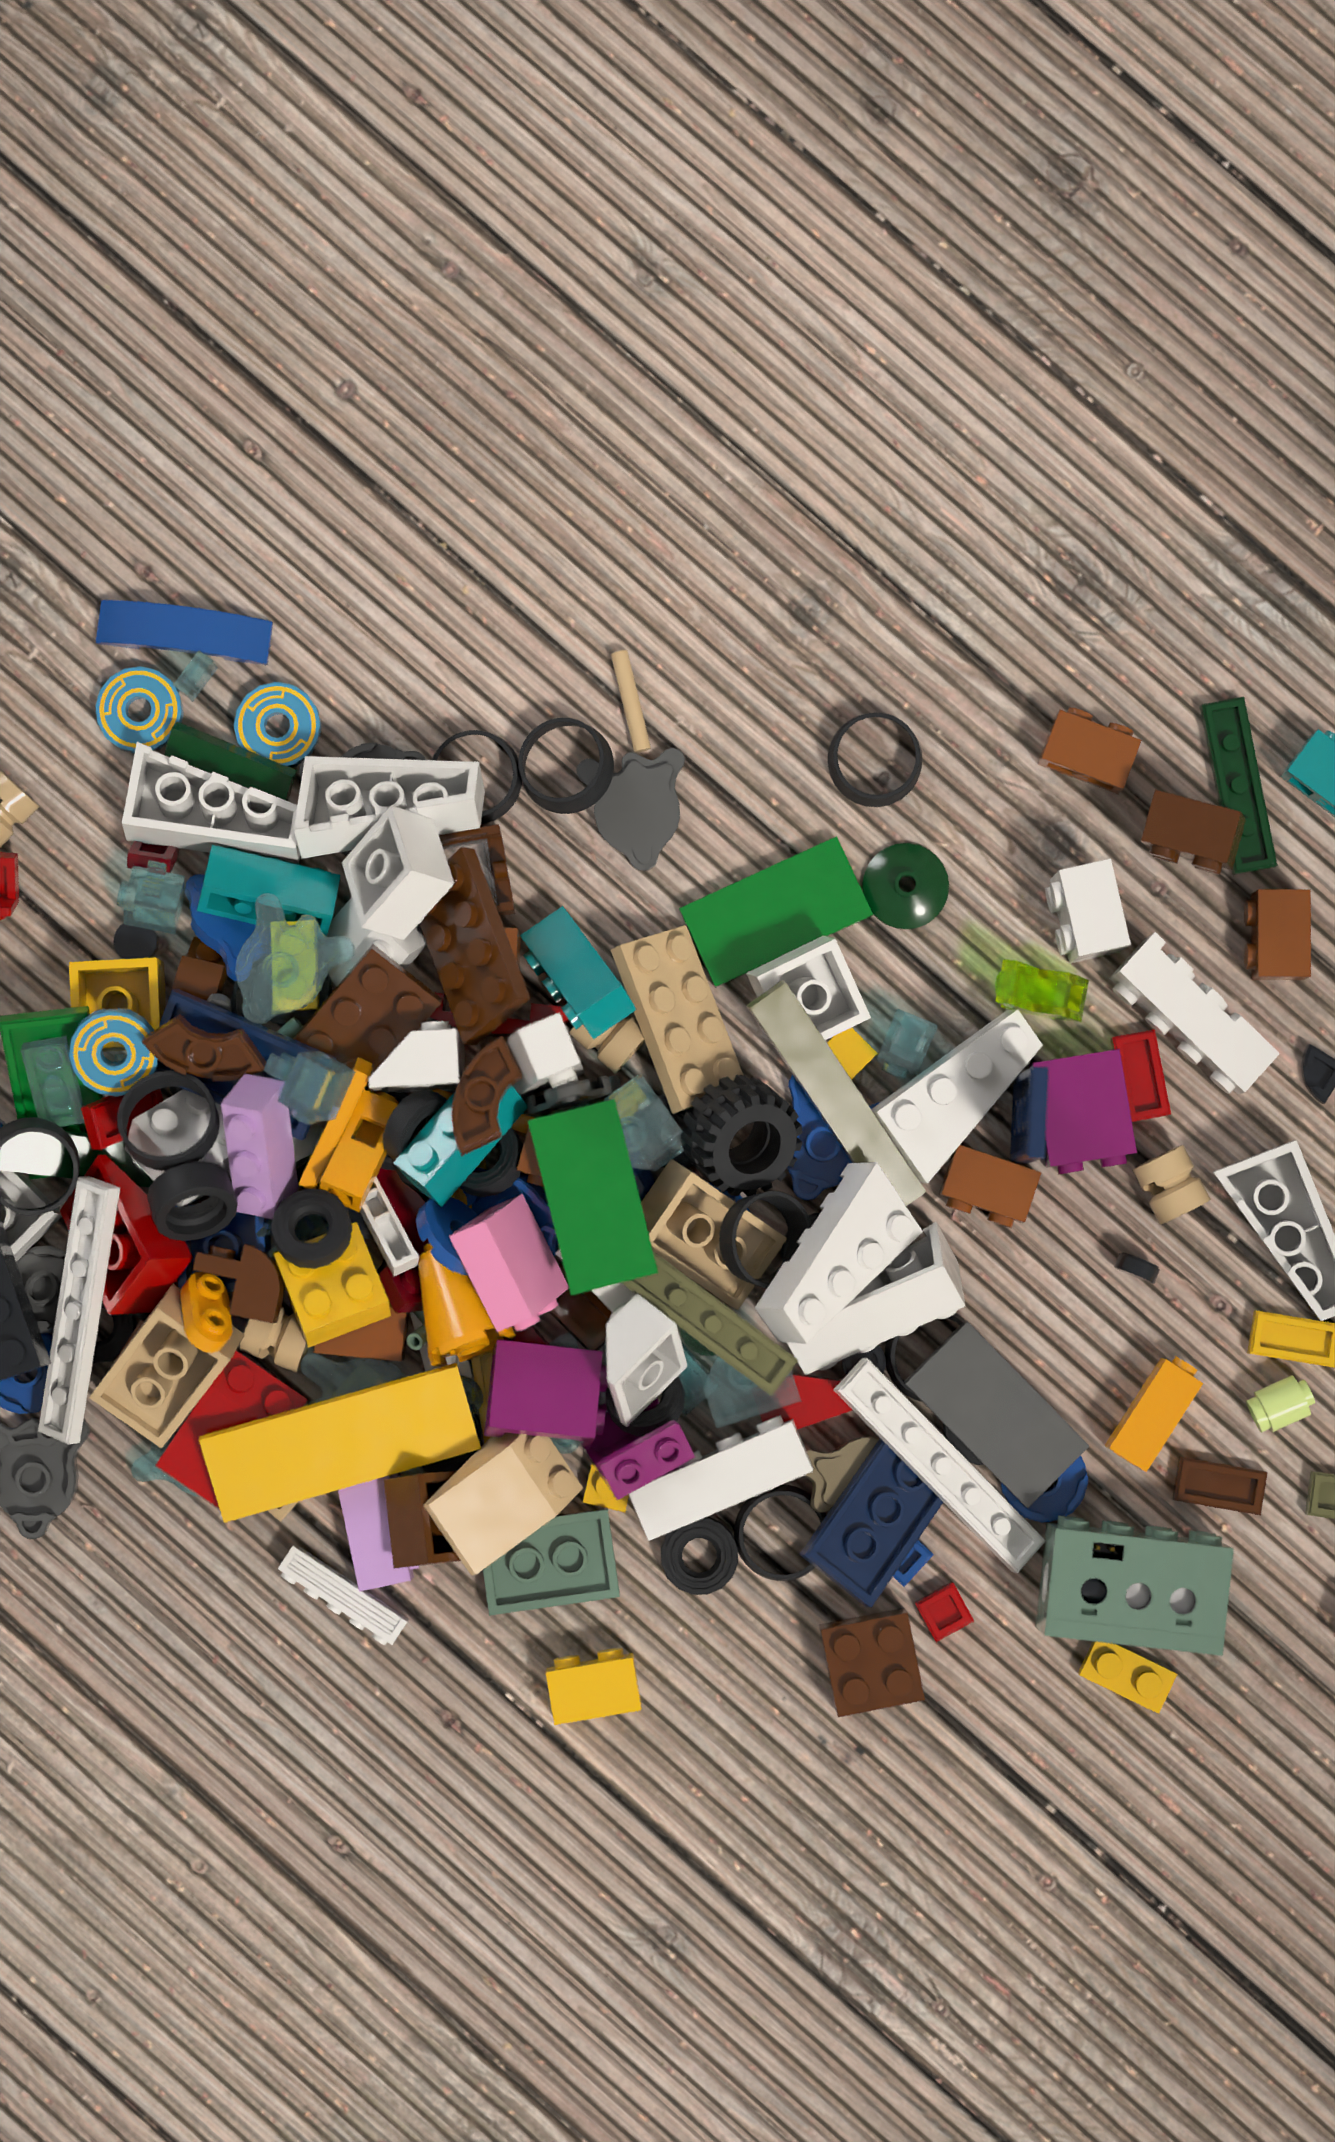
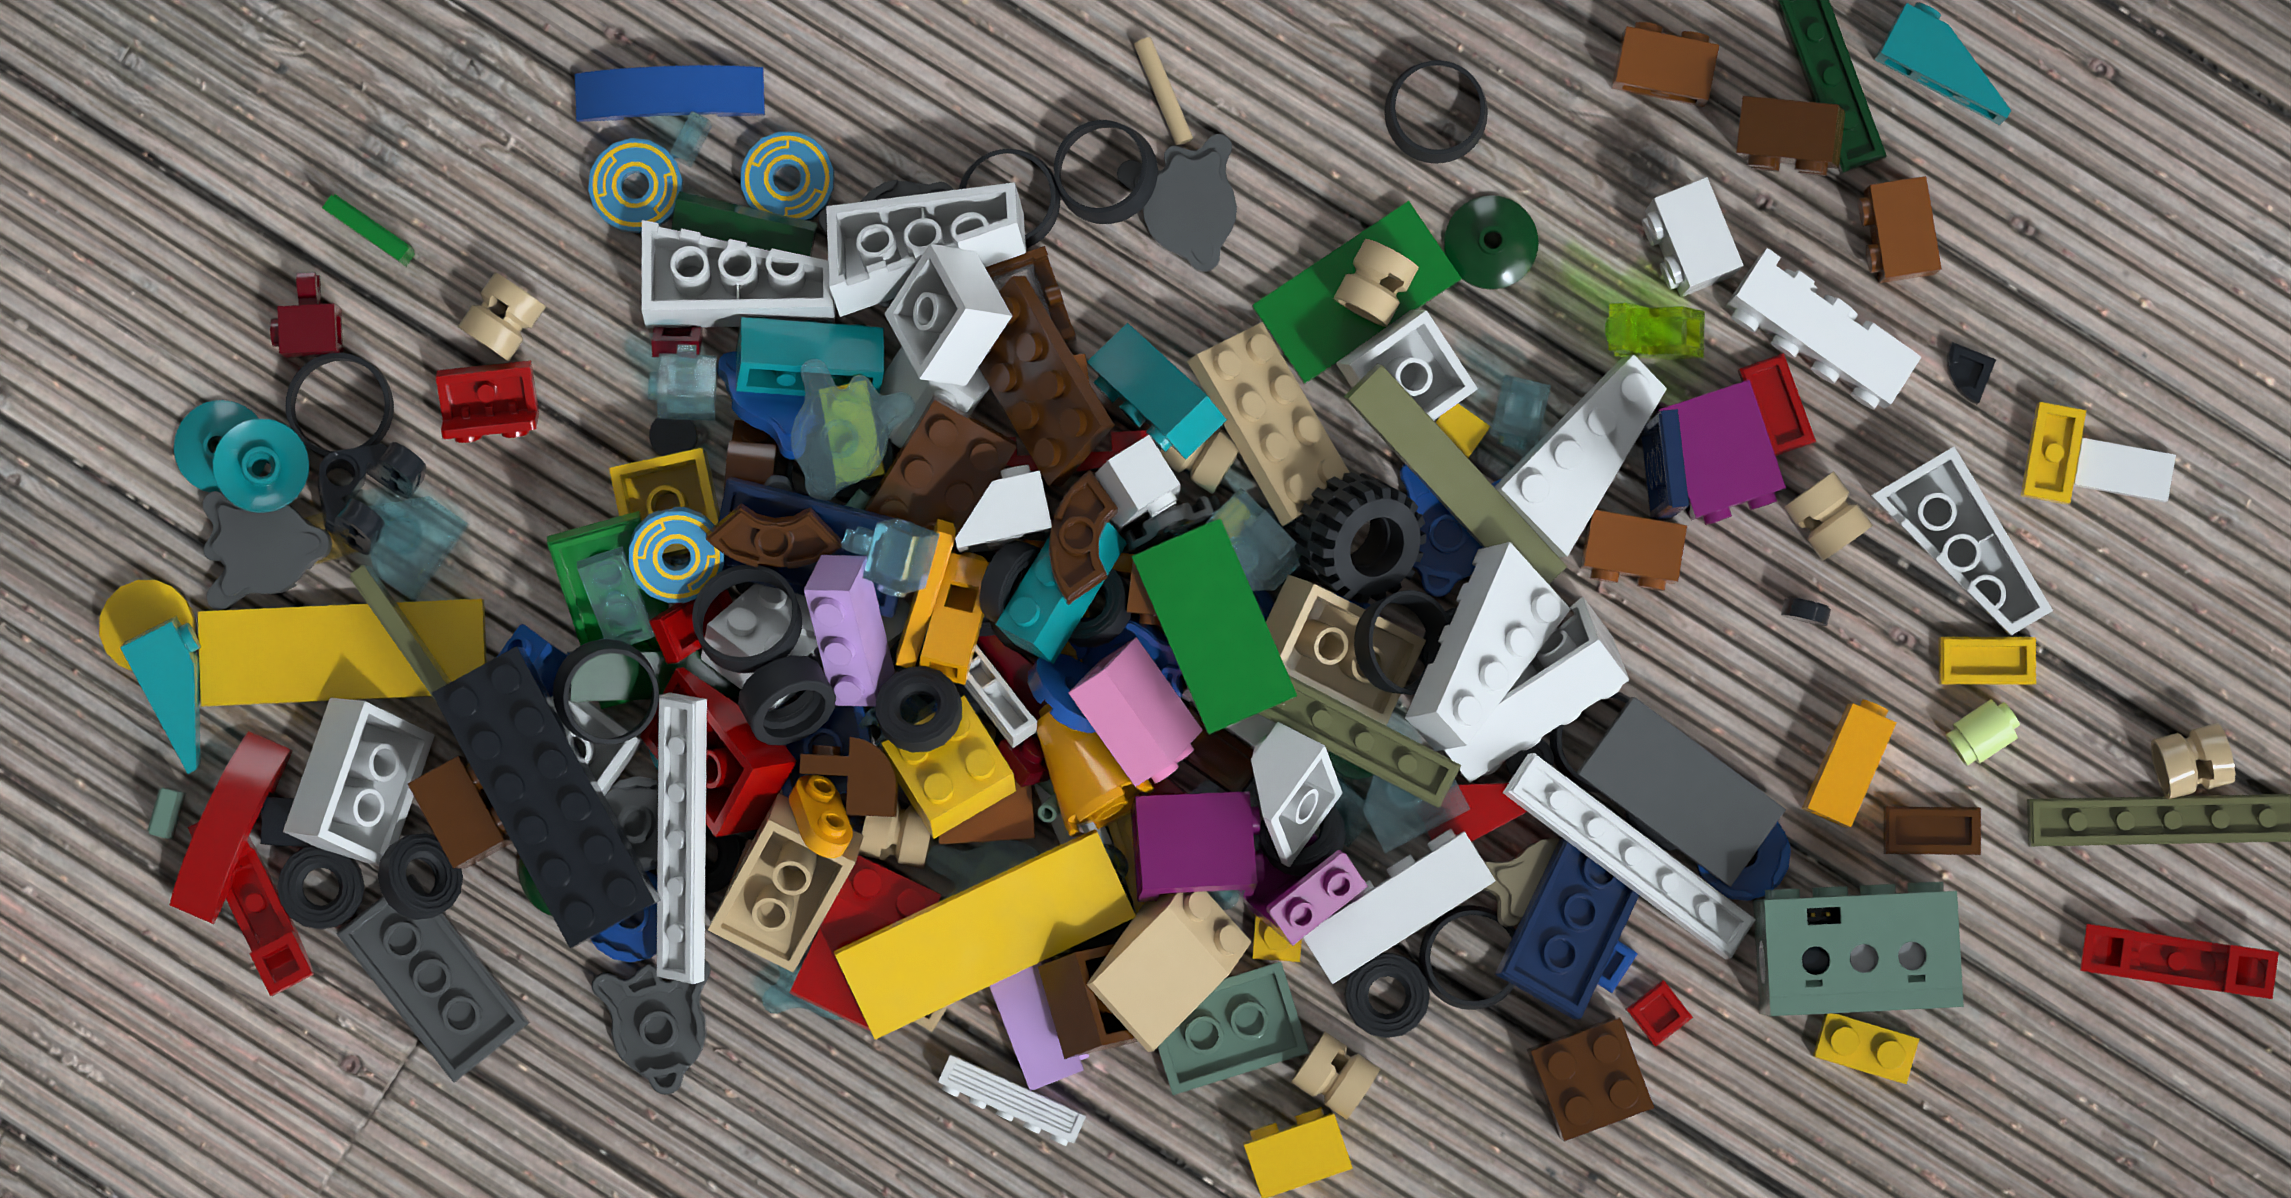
camera: 10 degrees left, 0 degrees up
(640, 1621) = (1335, 1075): none -> tan wheel
(794, 906) = (1376, 282): none -> tan wheel

